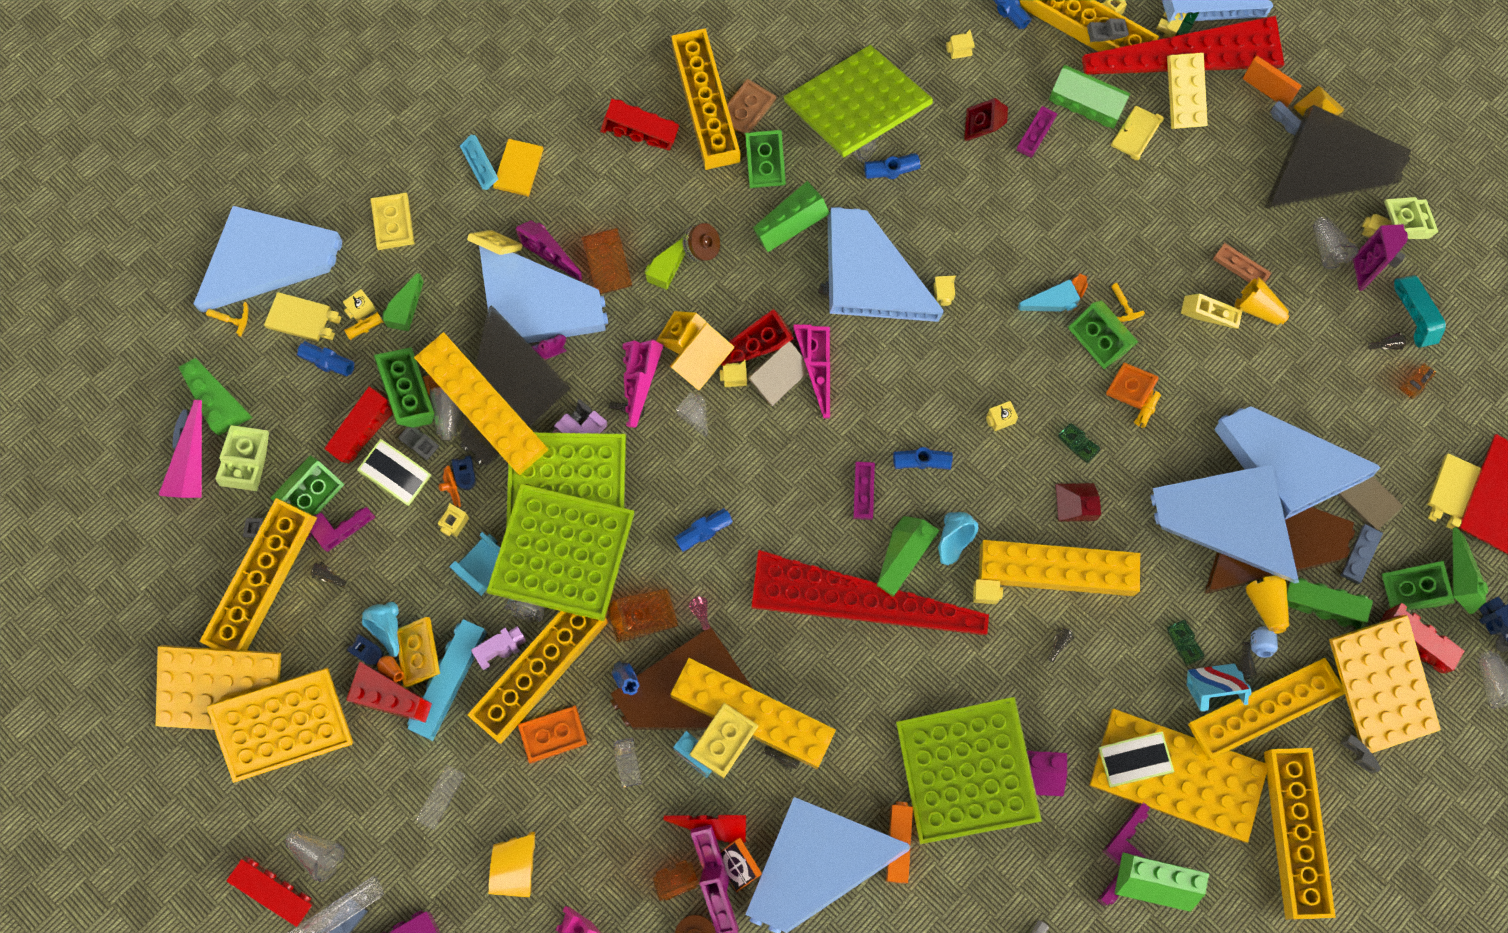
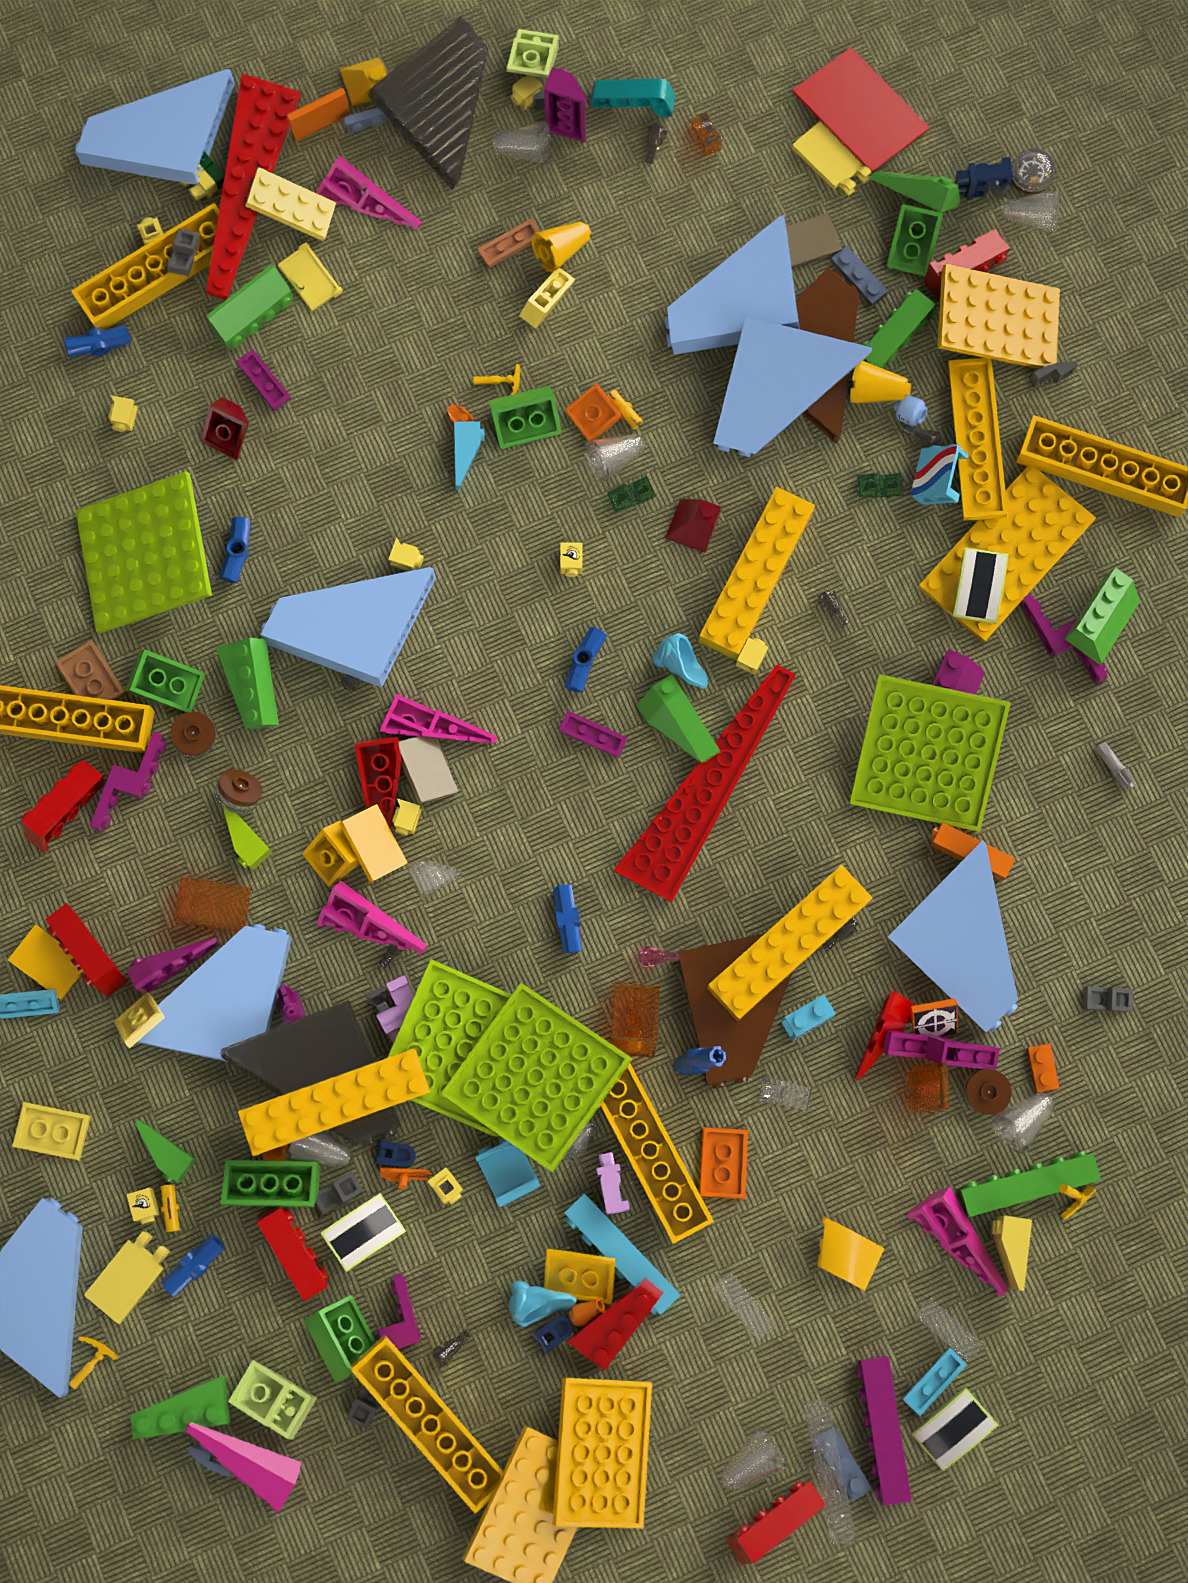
camera: 65 degrees left, 5 degrees up
(534, 186) = (85, 950): none -> red wedge
(676, 162) = (128, 782): none -> magenta bracket
(723, 740) = (811, 981): light yellow tile -> none
(732, 195) = (193, 735): none -> reddish brown piece
(1105, 413) = (612, 454): none -> clear cone
(1225, 133) = (353, 189): none -> dark pink wedge

